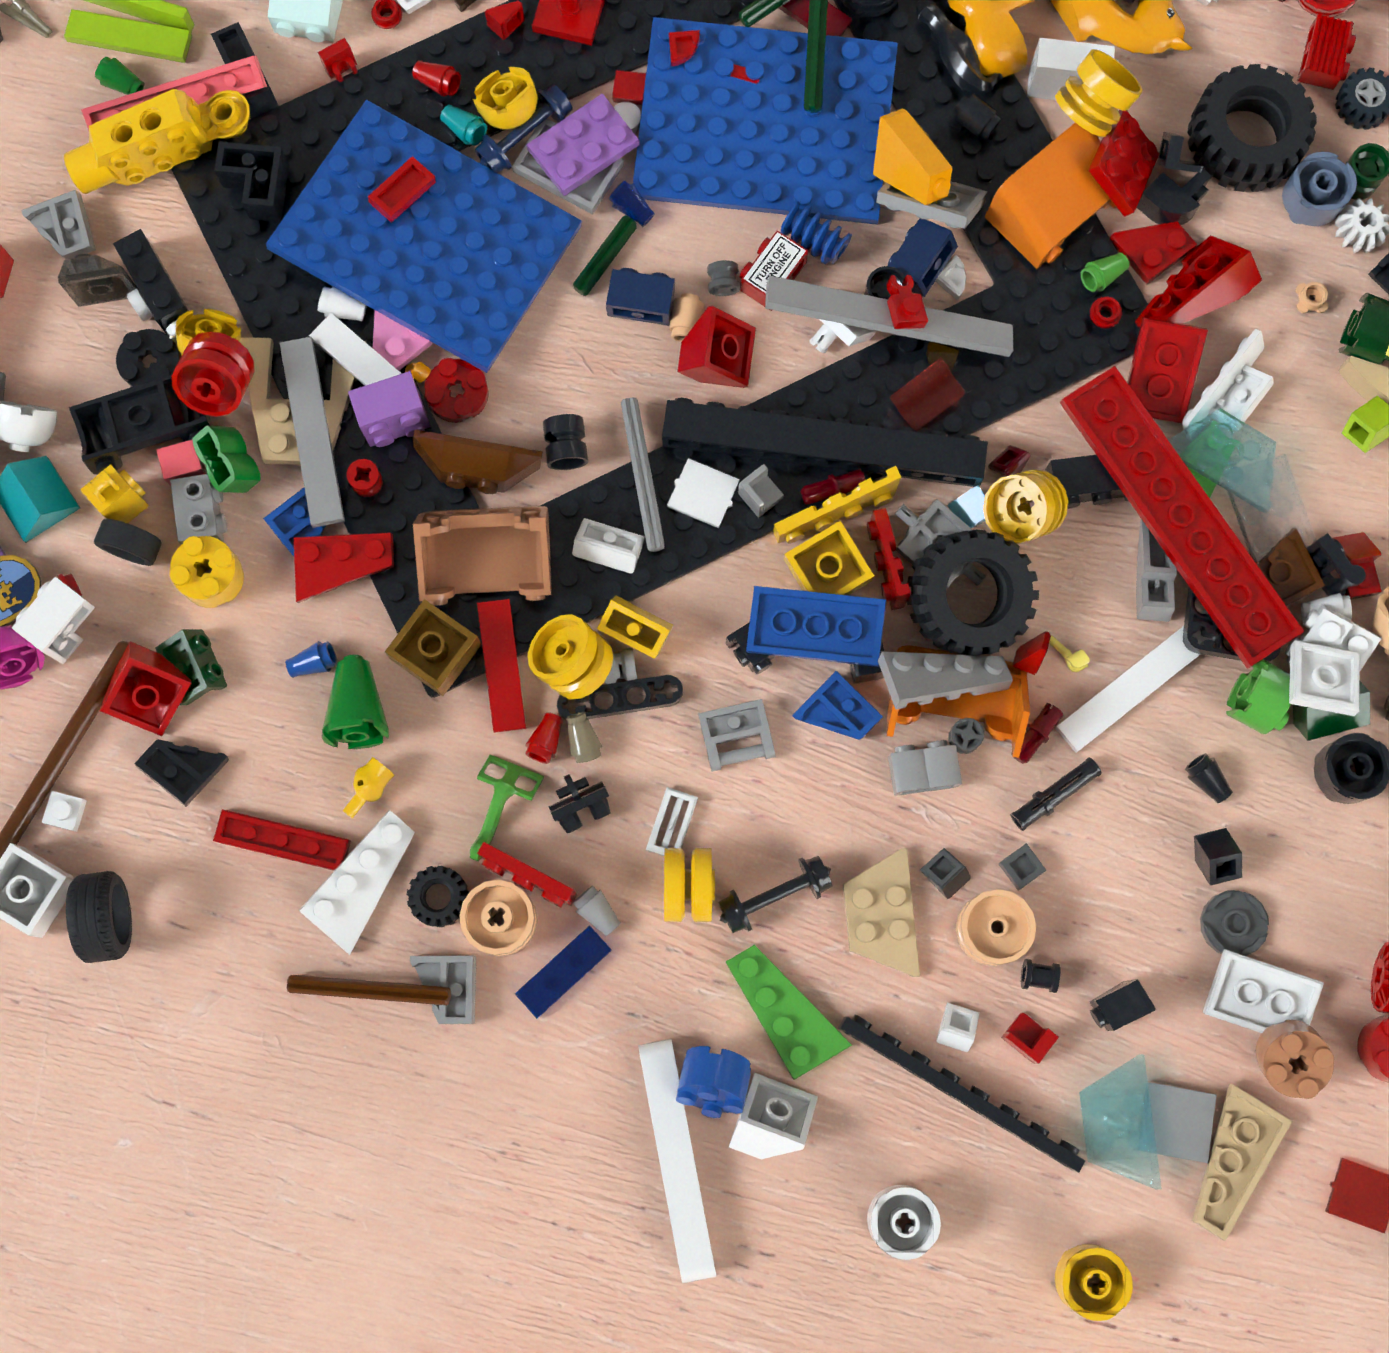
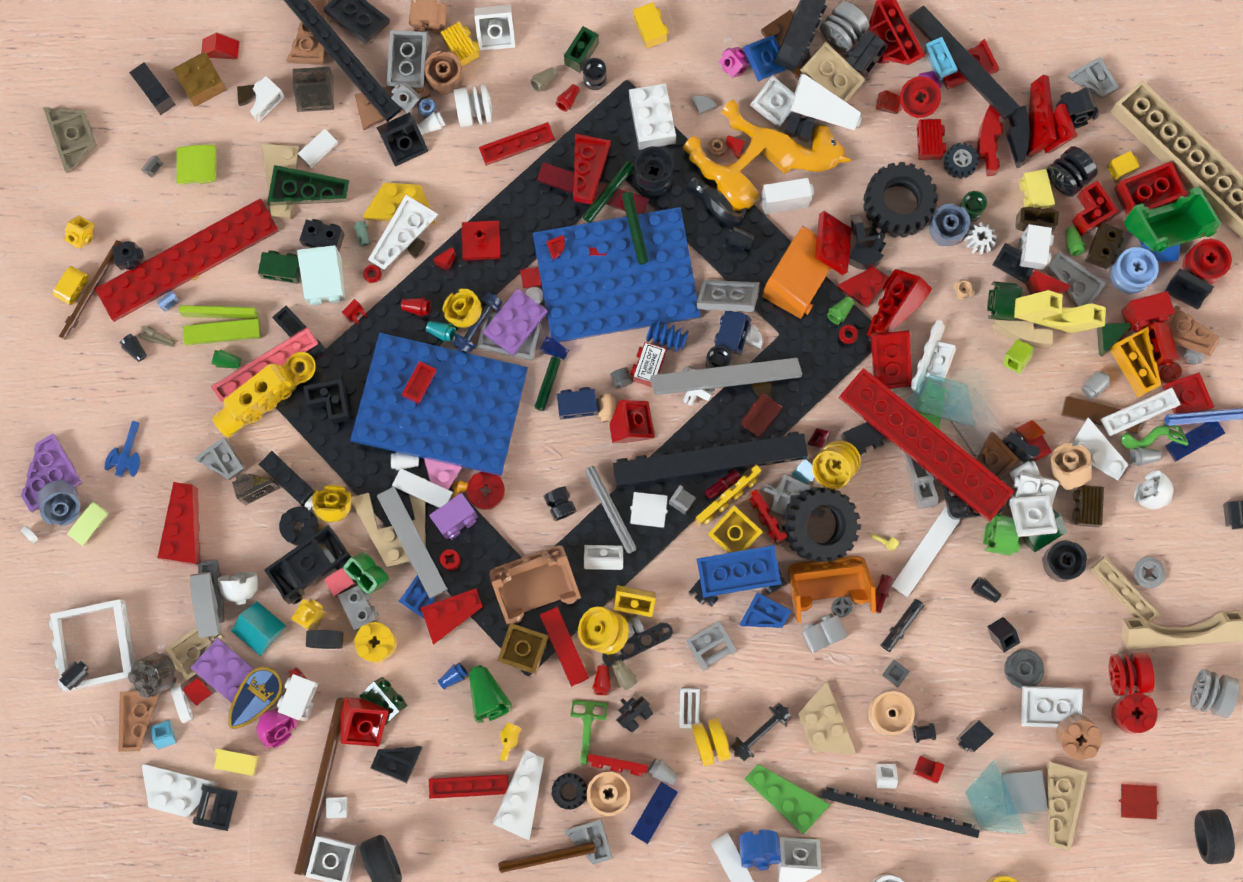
camera: 15 degrees left, 0 degrees up
(139, 305) = (284, 495): white tile -> none
(213, 374) = (345, 526): red wheel -> none
(475, 462) = (511, 532): reddish brown wedge -> none
(905, 308) = (734, 369): red plate -> none
(910, 159) = (710, 278): light orange slope -> none
(930, 676) = (812, 582): light grey wing -> none
(946, 873) = (853, 689): dark grey slope -> none
(1031, 654) = (865, 548): red slope -> none
(1098, 93) = (807, 211): yellow wheel -> none

